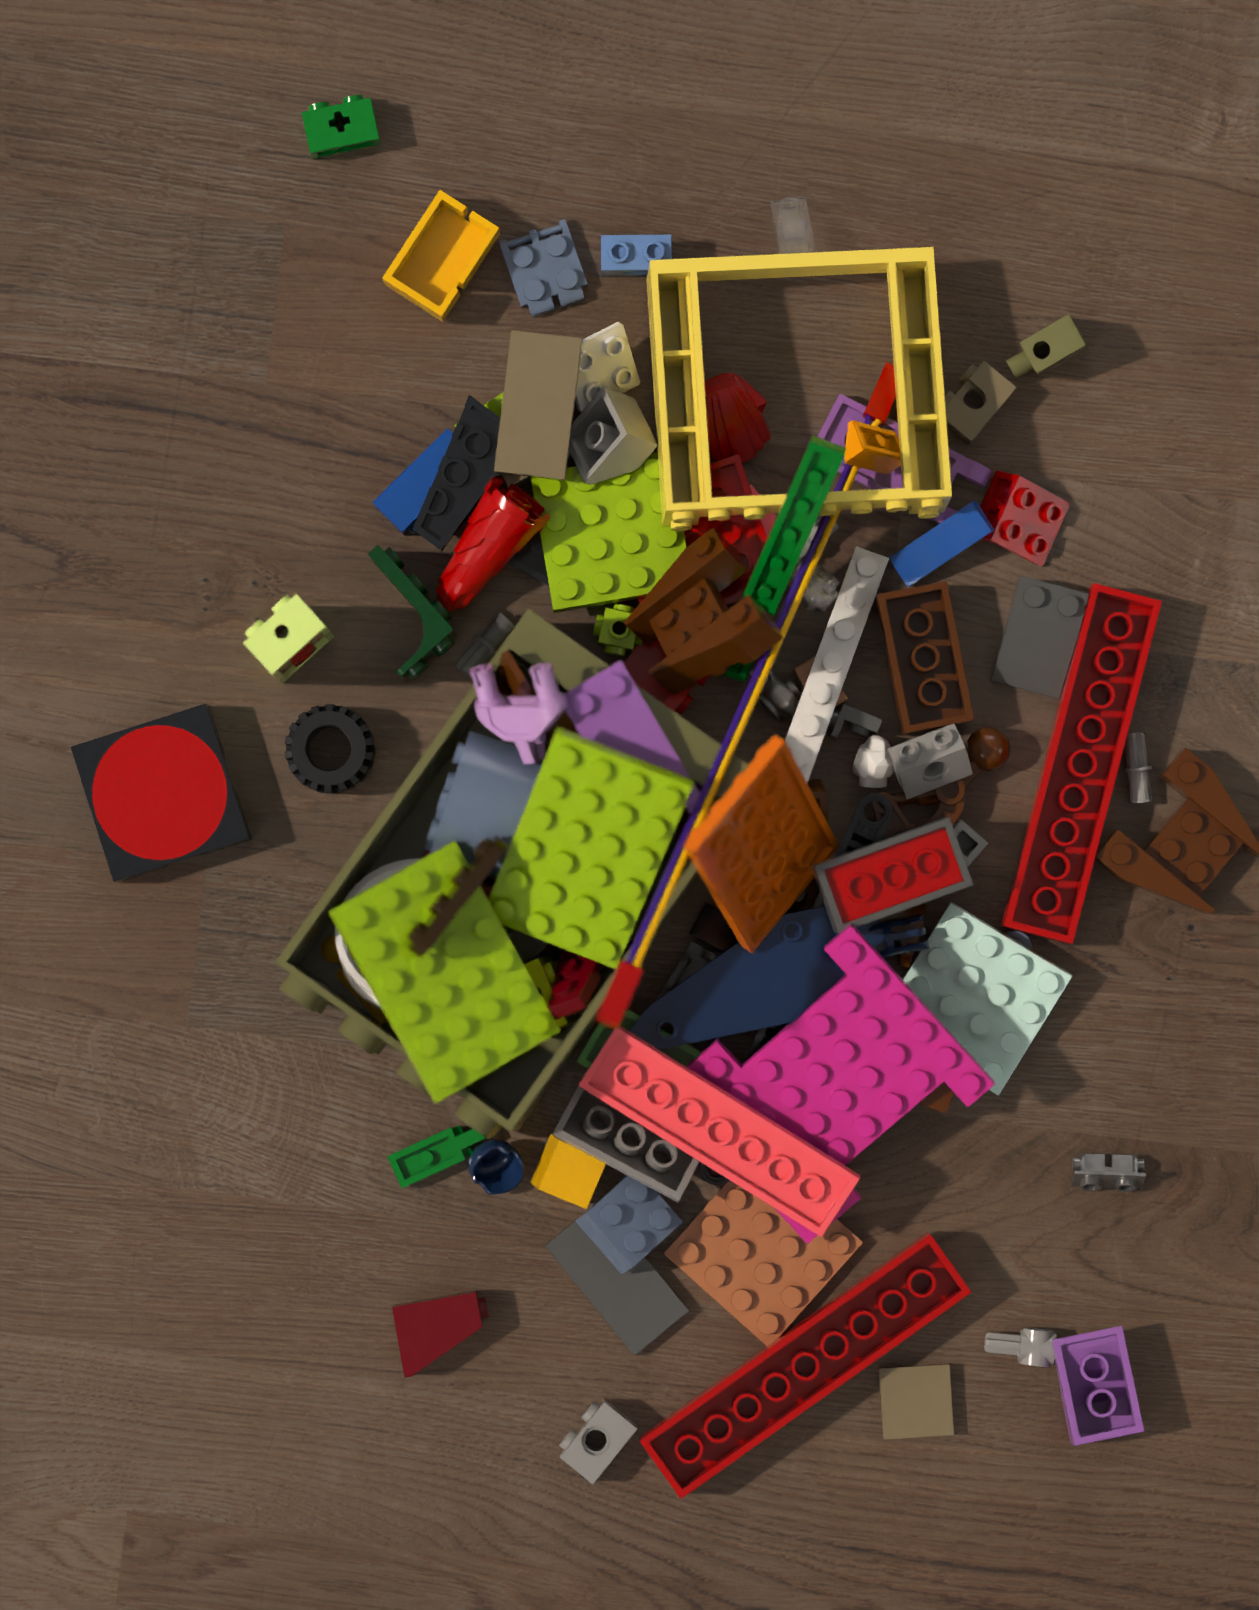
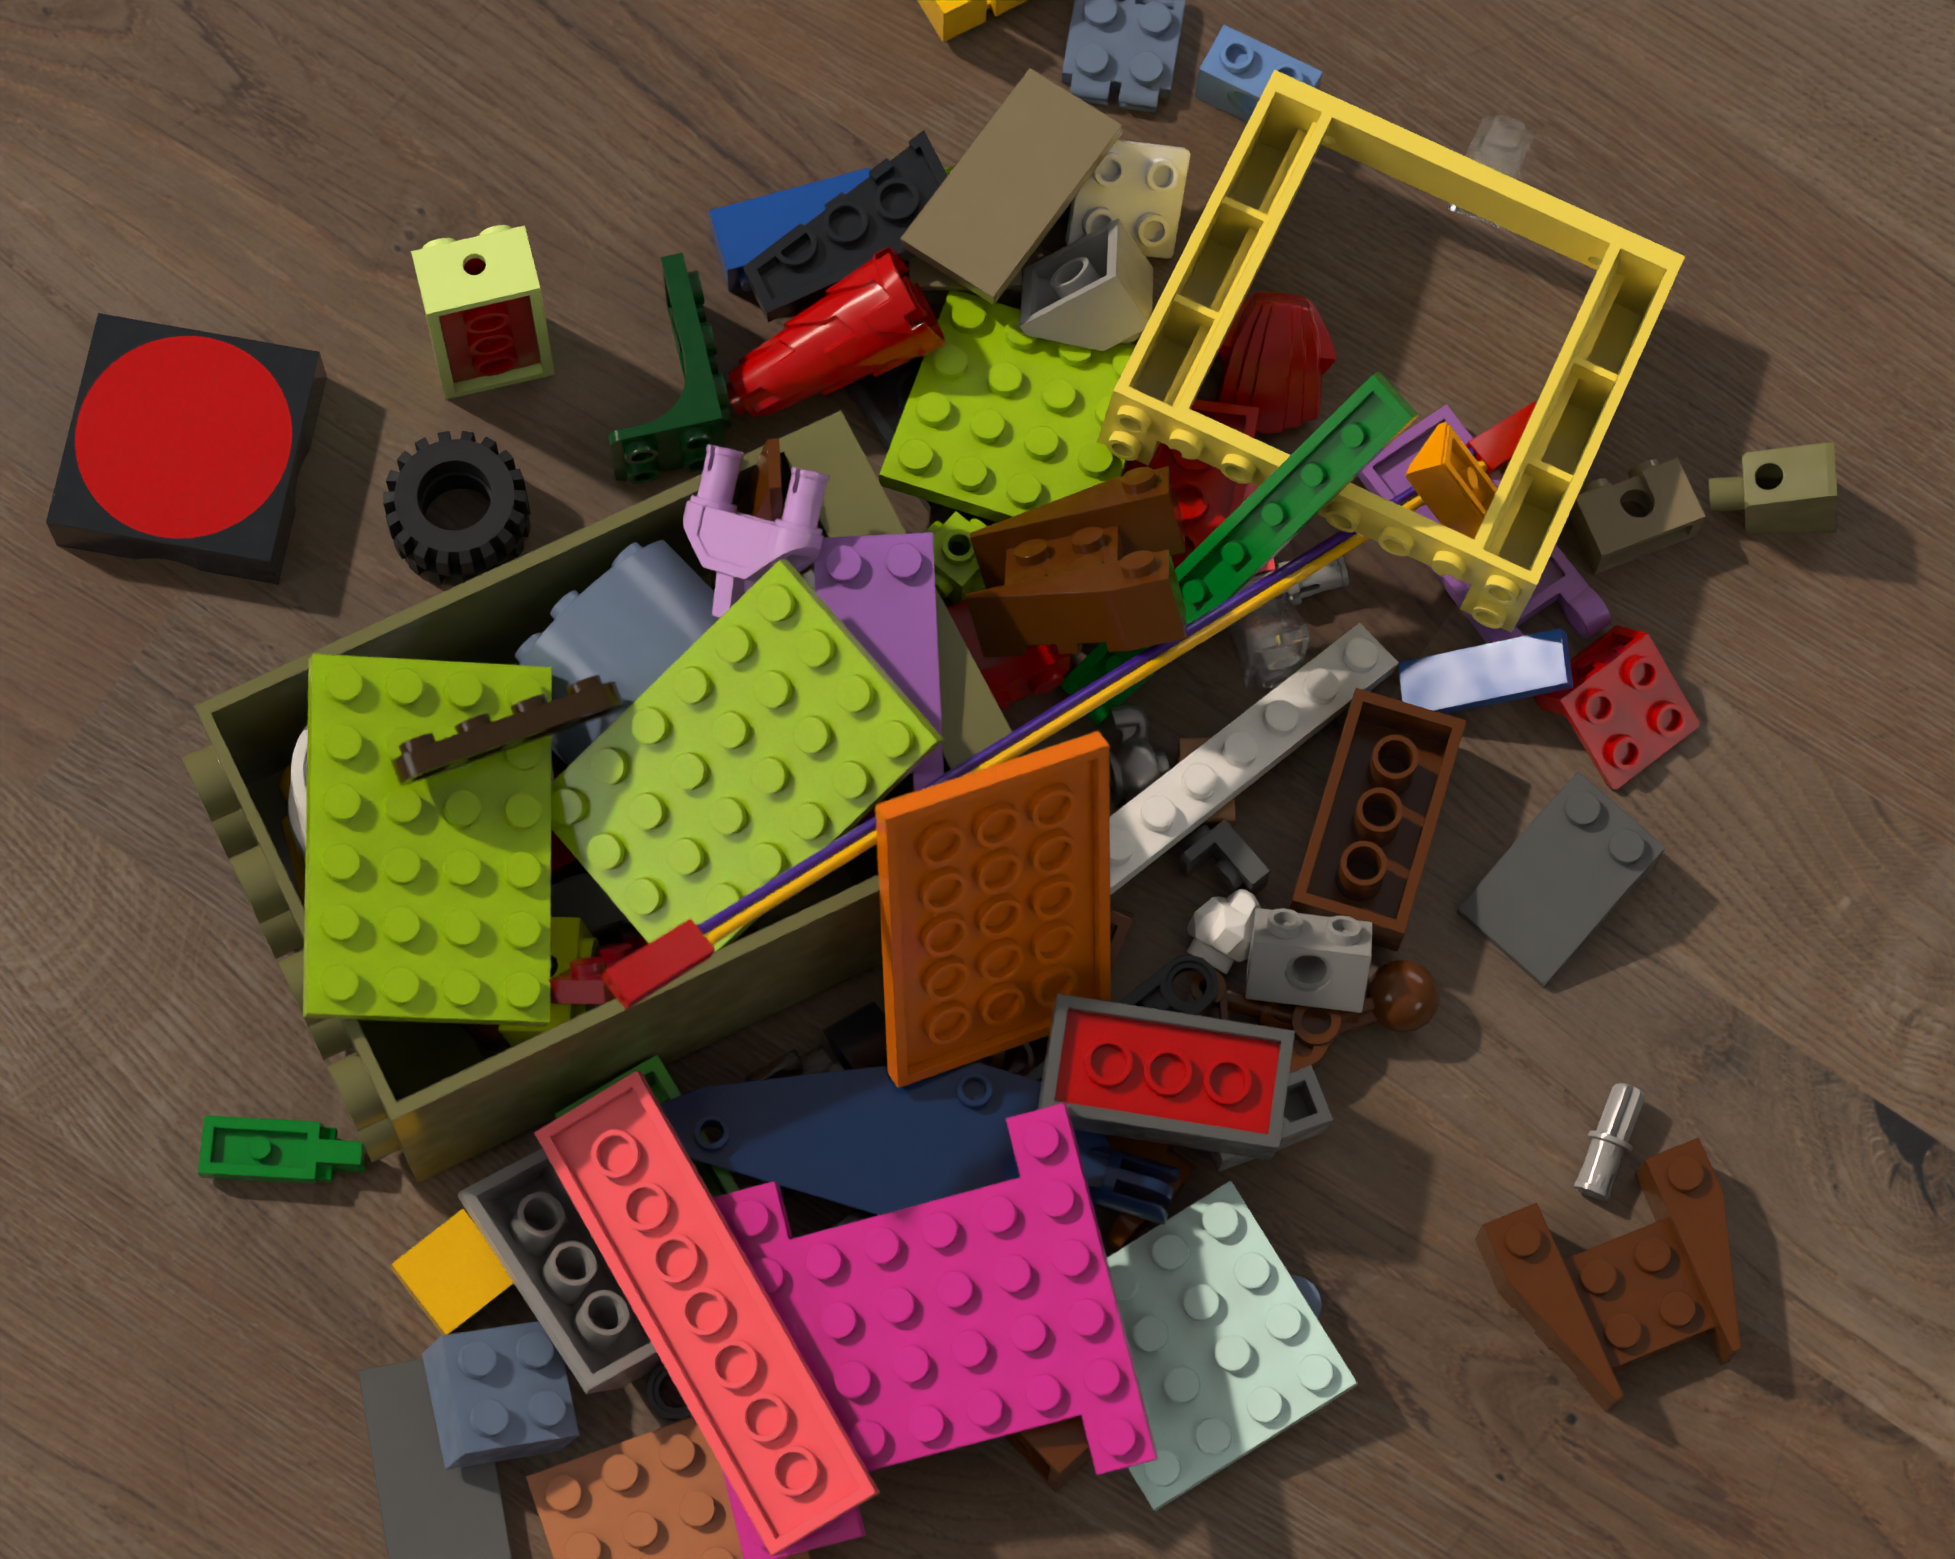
camera: 25 degrees right, 15 degrees down
(435, 1326) = (128, 1402): dark red slope -> none
(496, 1166) = (352, 1213): dark blue hair -> none
(1081, 764) = (1527, 1088): red brick -> none

